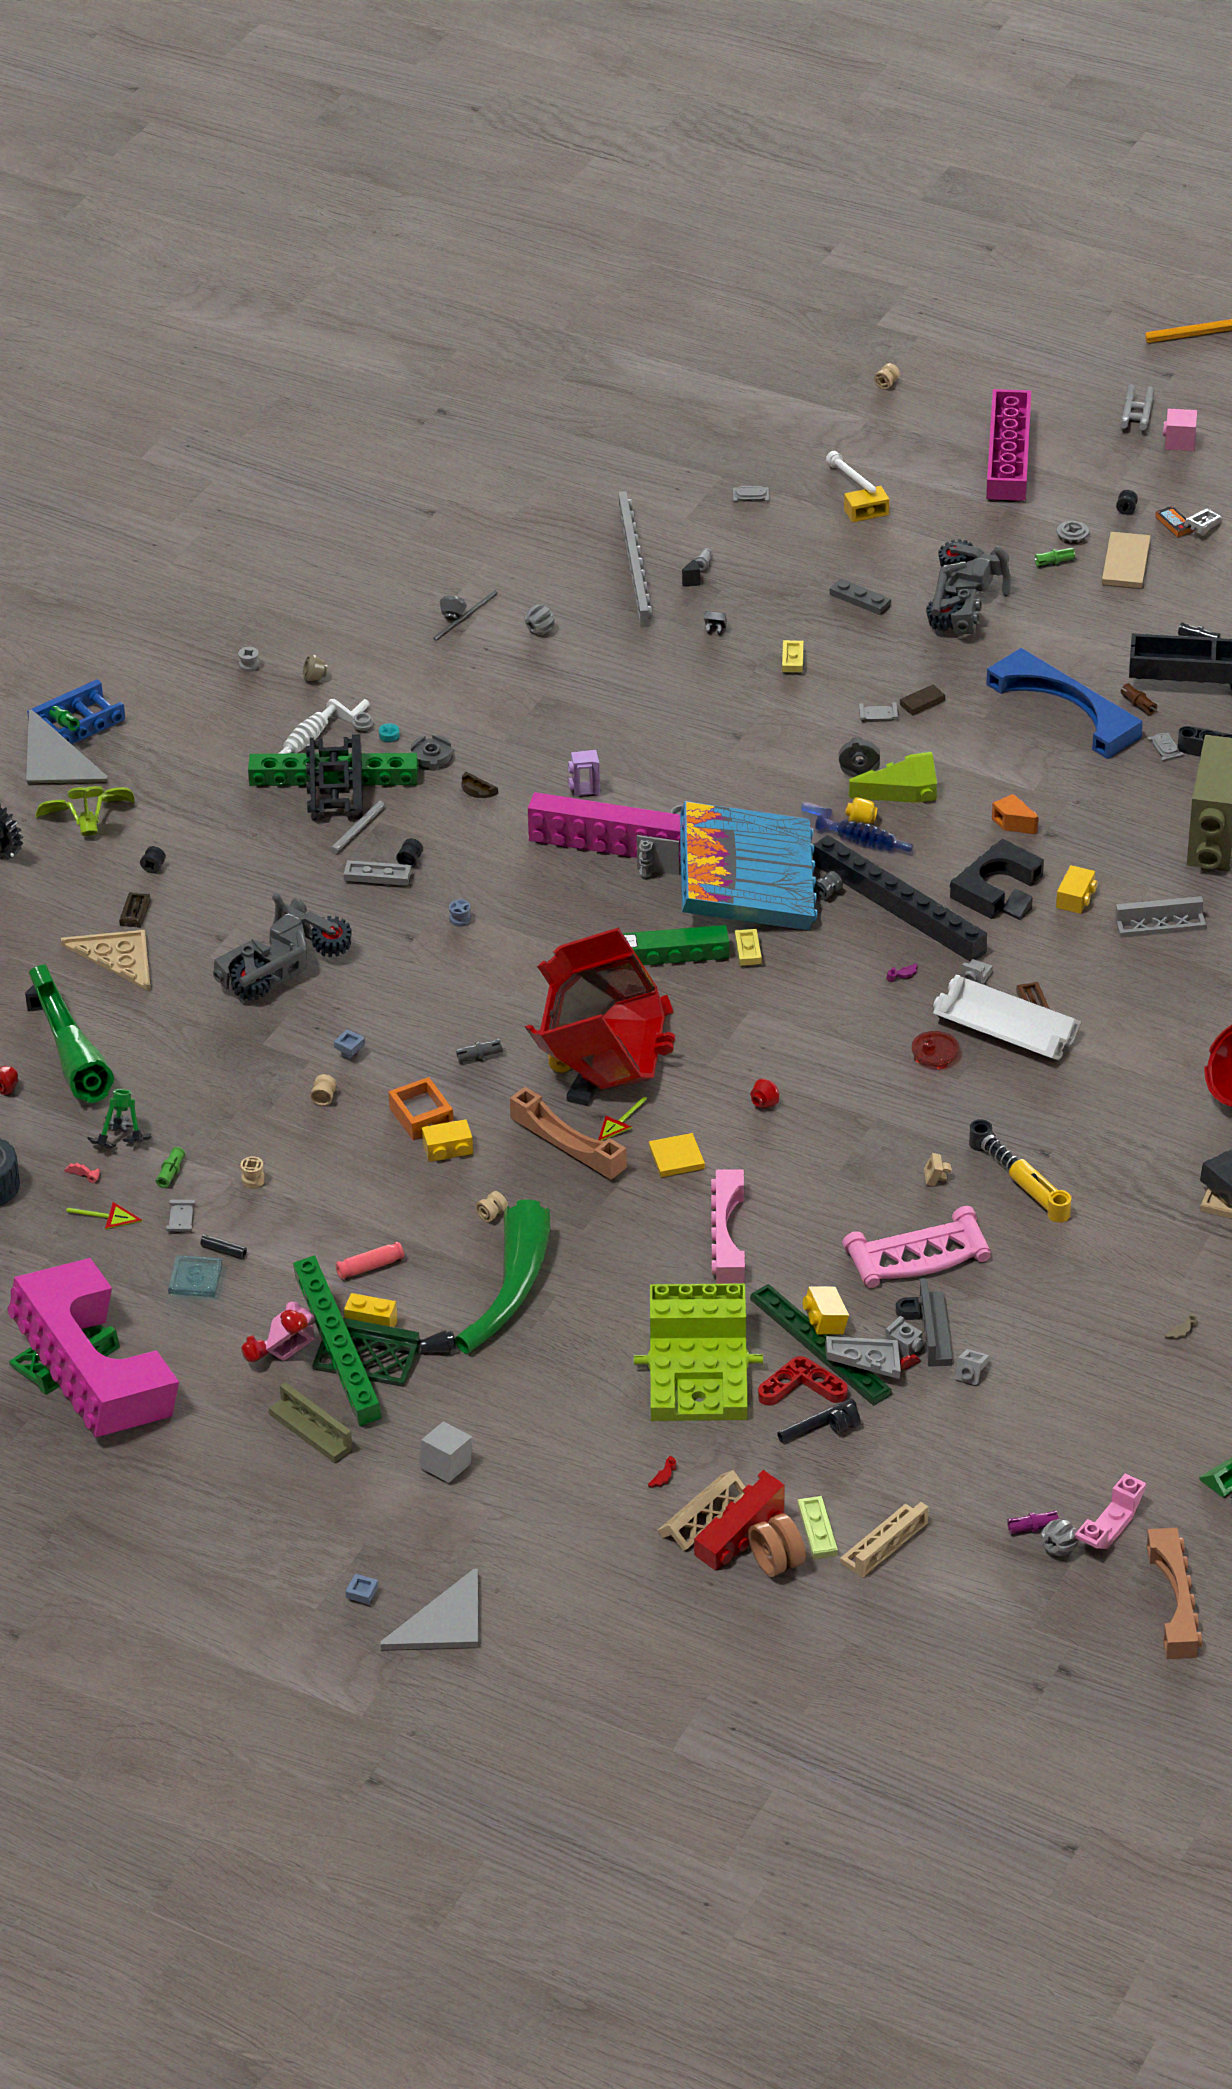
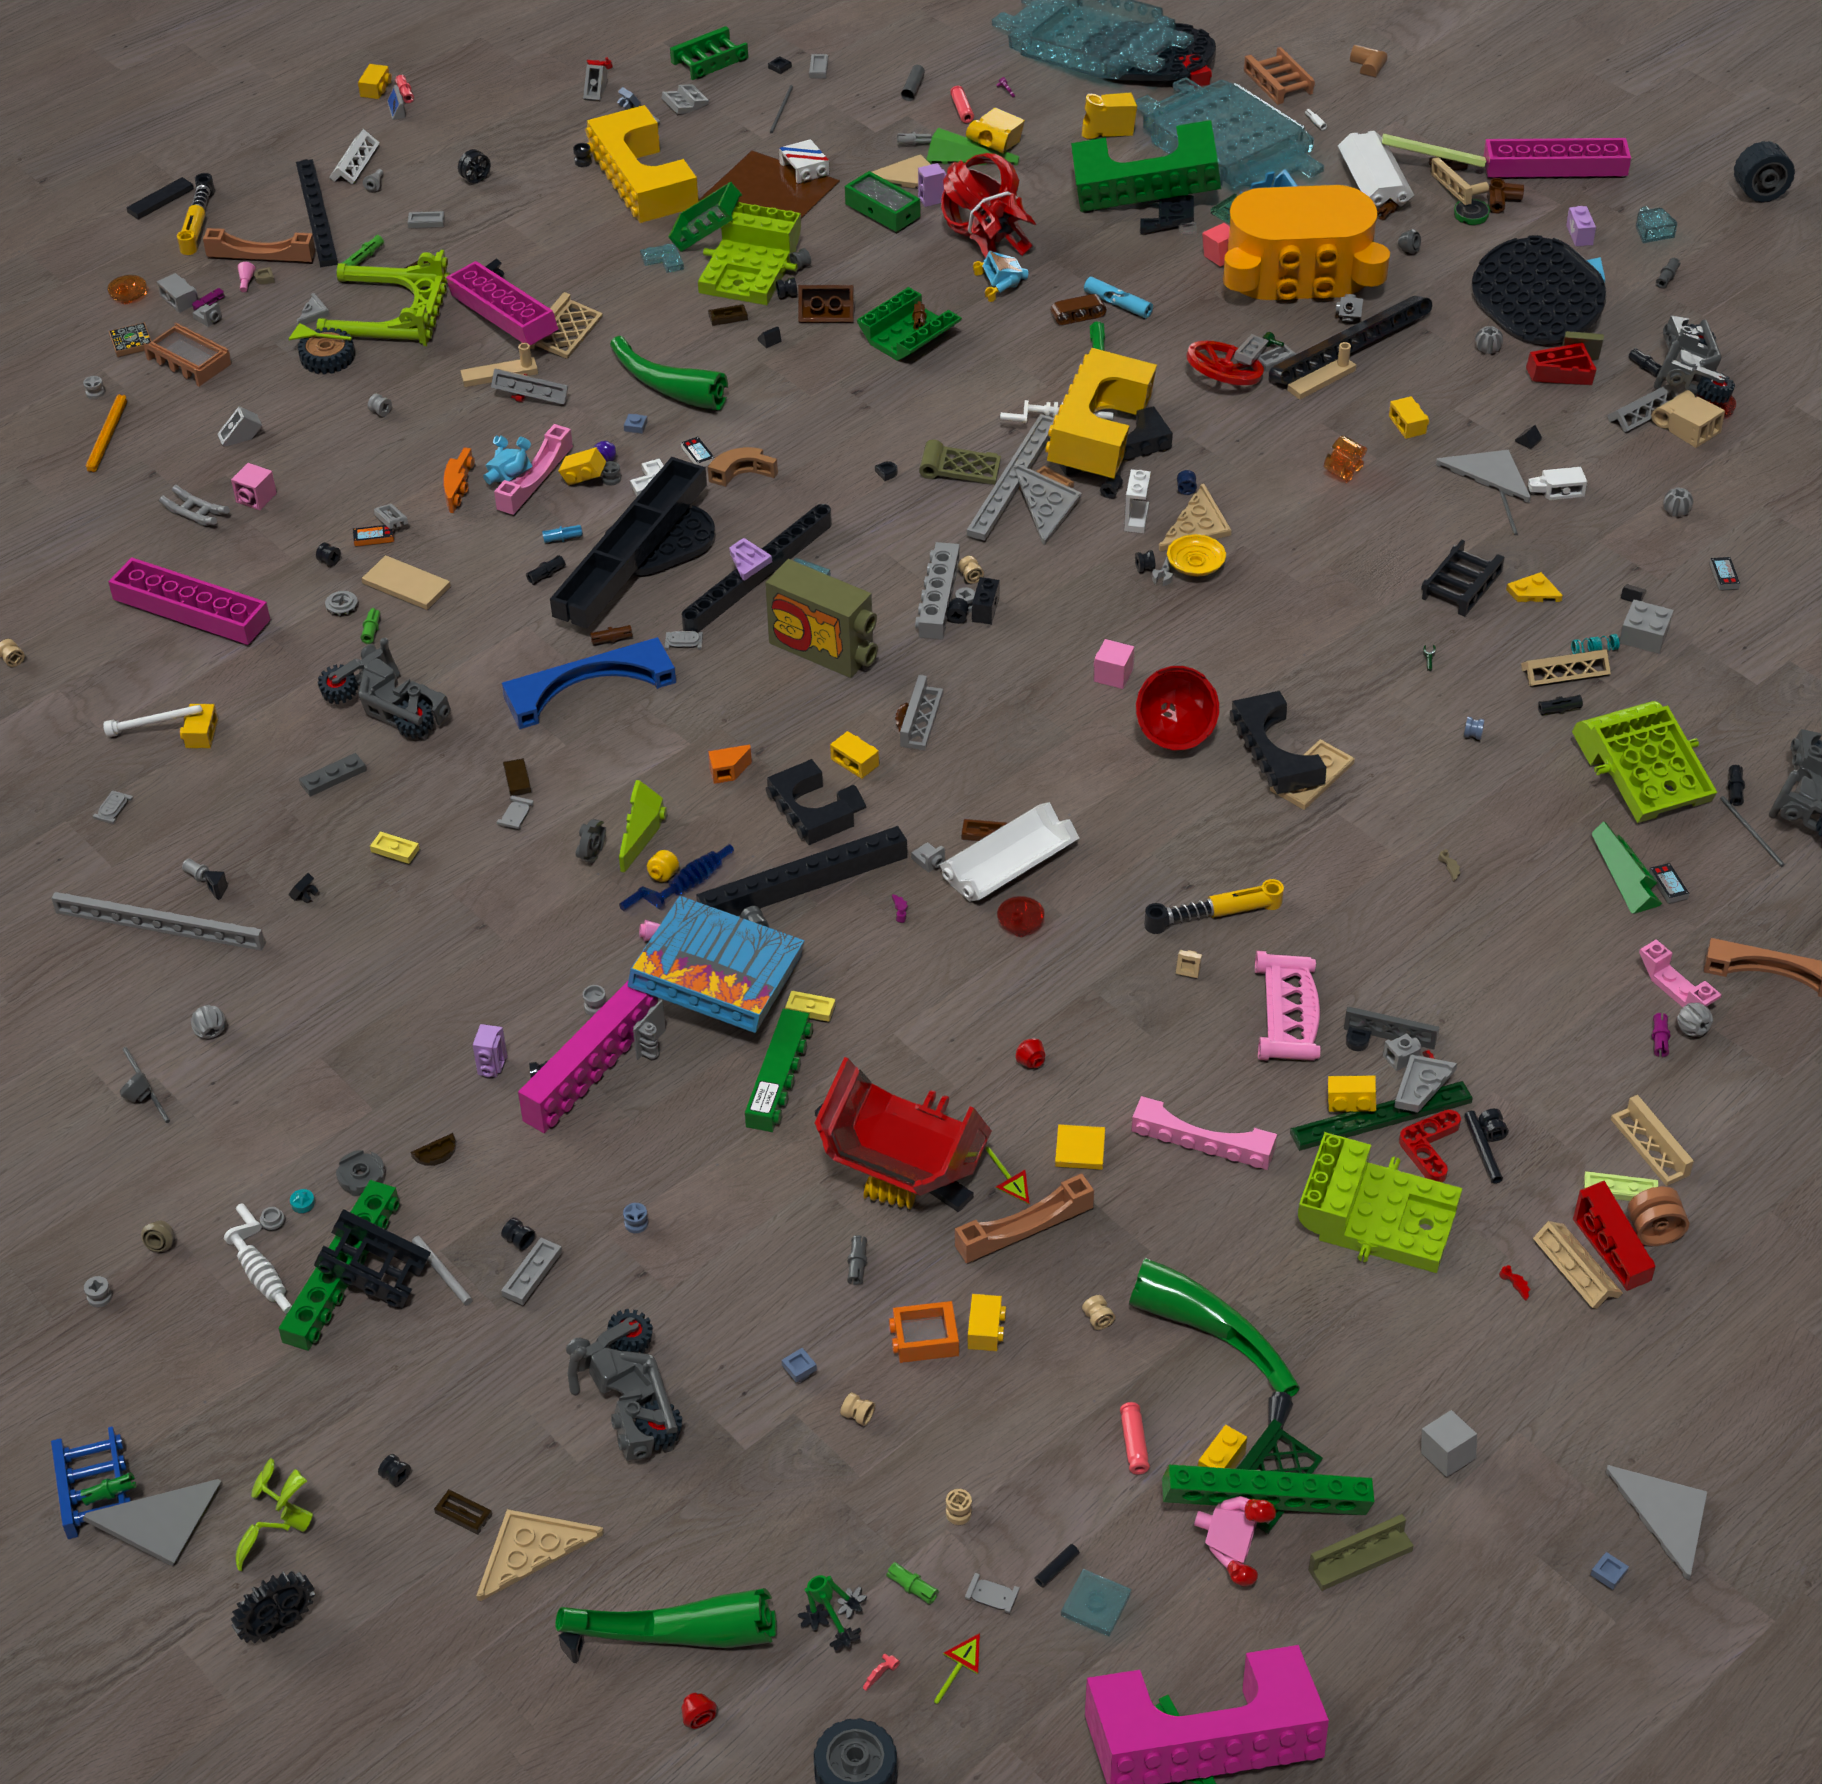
camera: 70 degrees left, 5 degrees up
(970, 1365) = (1454, 1014): light grey bracket -> none

